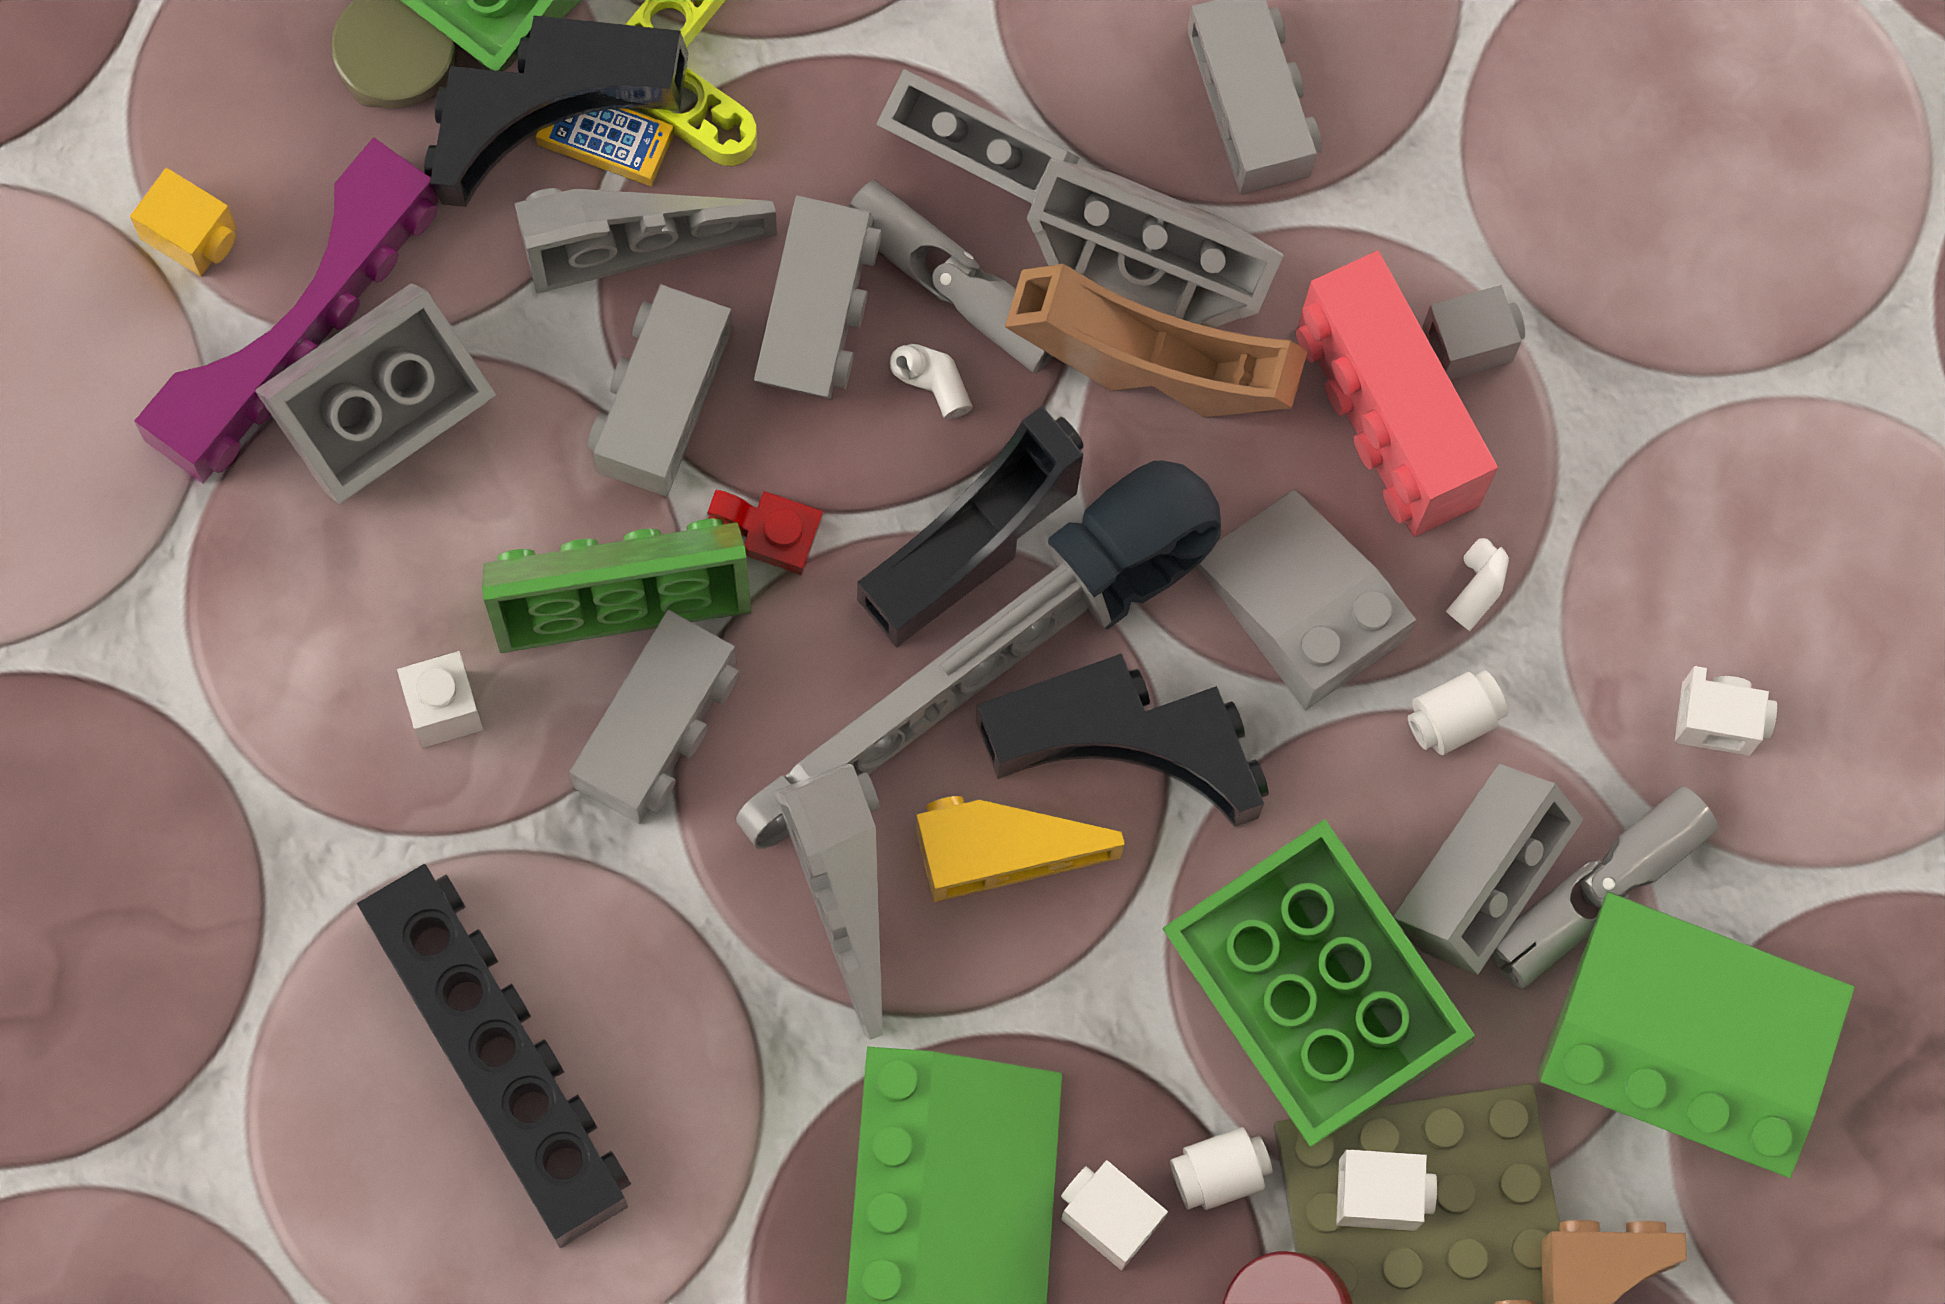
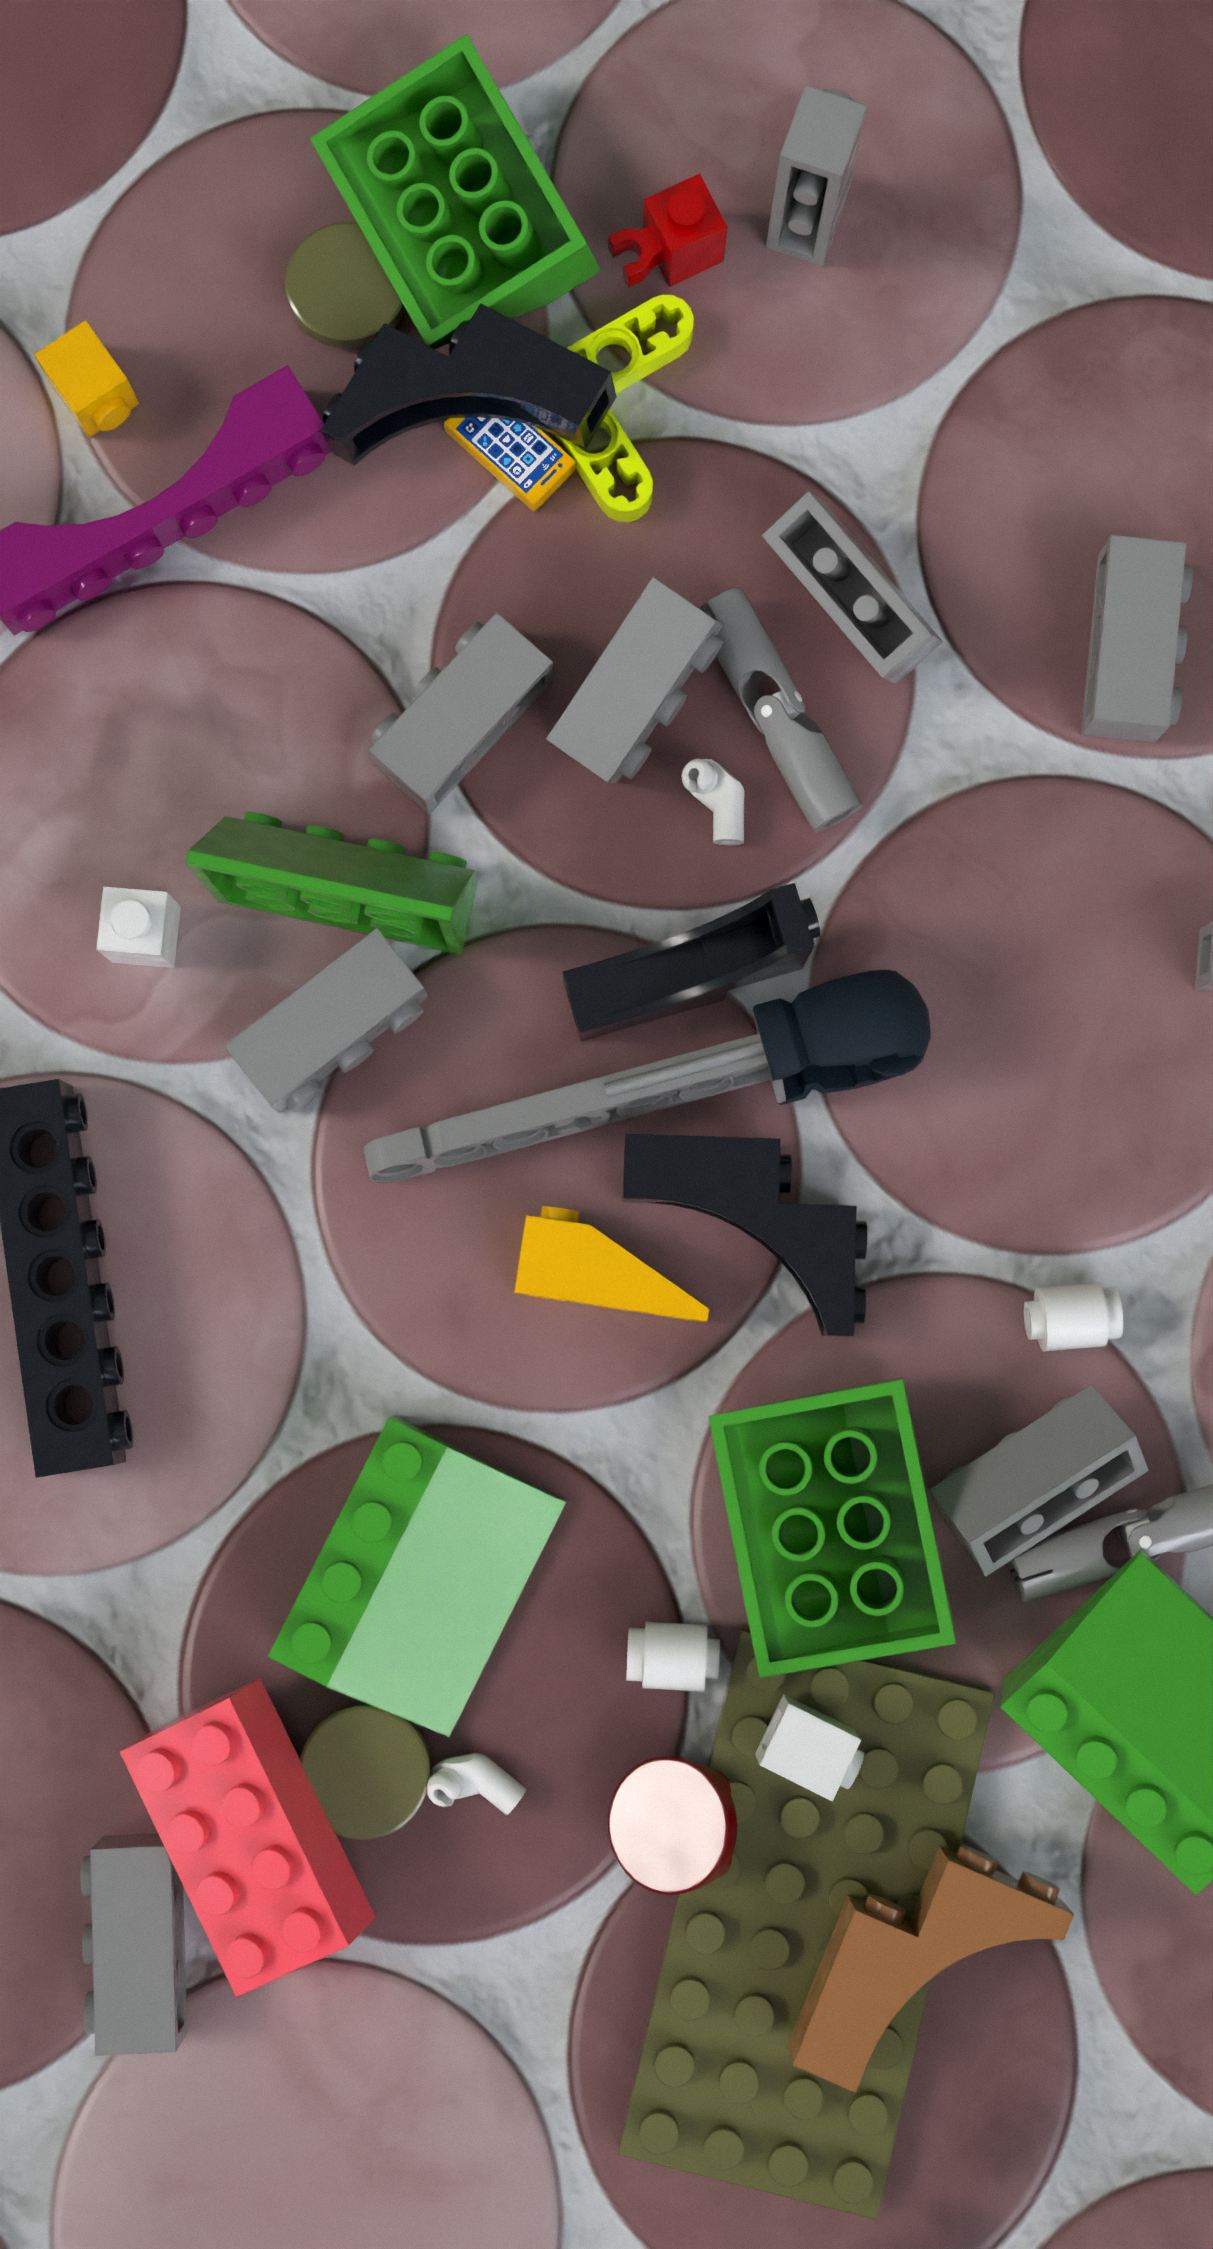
camera: 25 degrees right, 10 degrees up
(375, 392) = (188, 614): light grey brick -> none
(606, 233) = (460, 539): light grey wedge -> none
(775, 531) = (512, 887): red plate -> none
(838, 855) = (432, 1218): light grey wedge -> none
(1111, 1213) = (554, 1656): white brick -> none
(1140, 347) = (926, 853): medium nougat arch -> none
(1150, 246) = (968, 759): light grey wedge -> none
(1306, 598) = (978, 1147): light grey slope -> none
(1394, 395) = (1144, 991): coral brick -> none
(1486, 585) = (1153, 1205): white arm -> none

